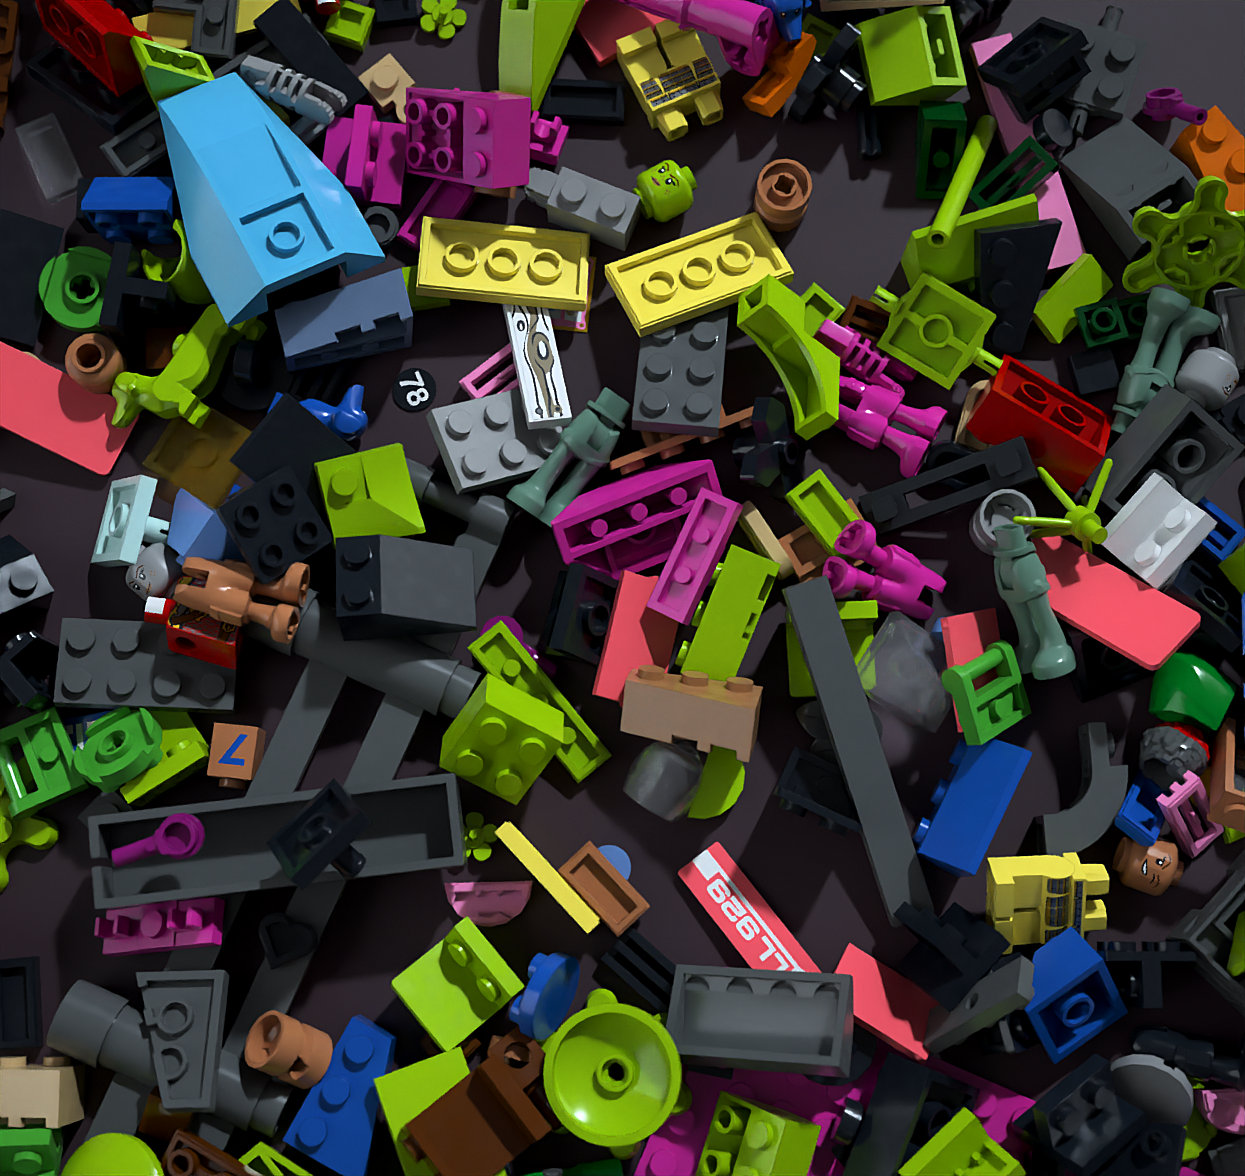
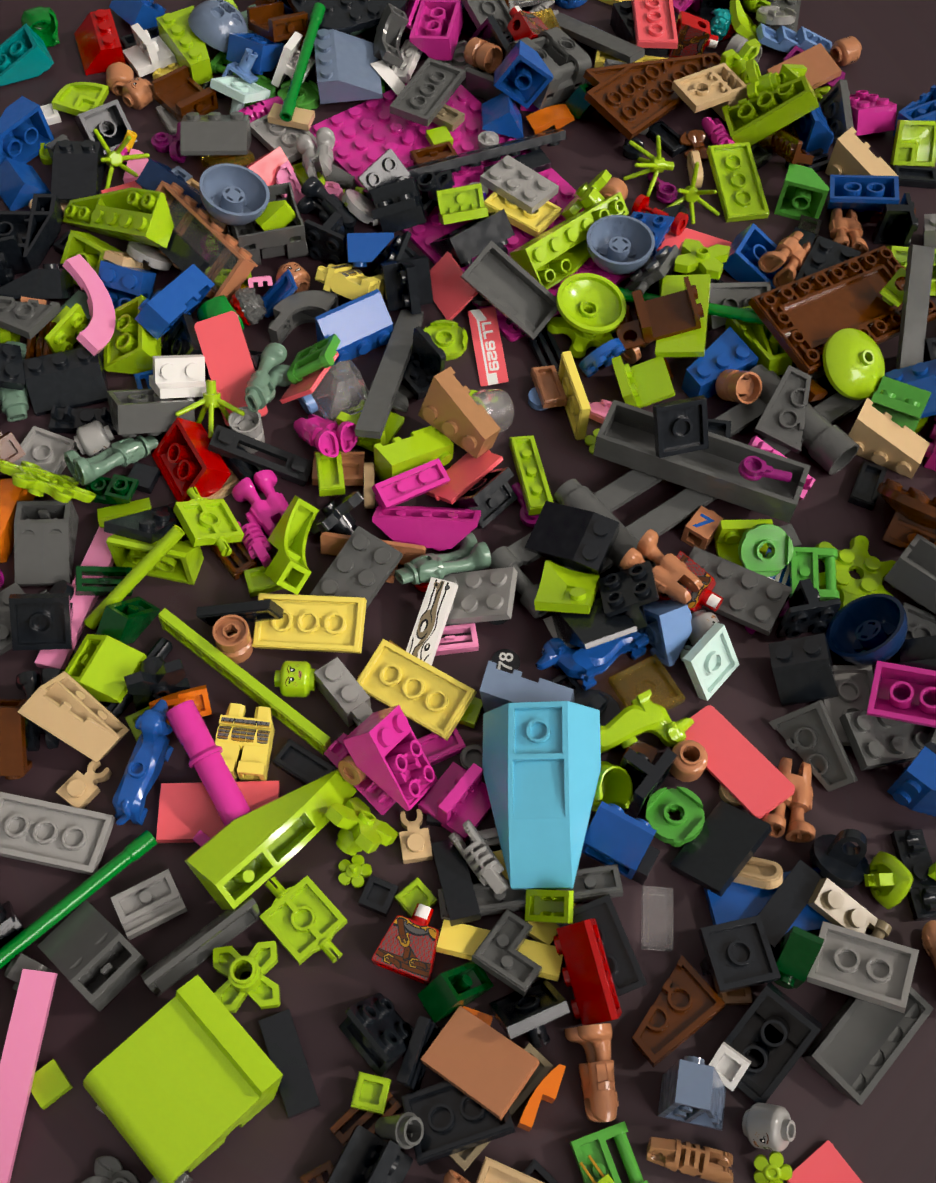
camera: 155 degrees left, 20 degrees down
(457, 49) = (359, 827): none -> lime plant
(502, 739) = (562, 453): lime brick -> none
(727, 153) = (244, 681): none -> lime tile
(795, 226) = (251, 611): none -> black tile
(829, 898) = (448, 337): none -> lime tile
(982, 1006) = (409, 245): dark grey tile -> none

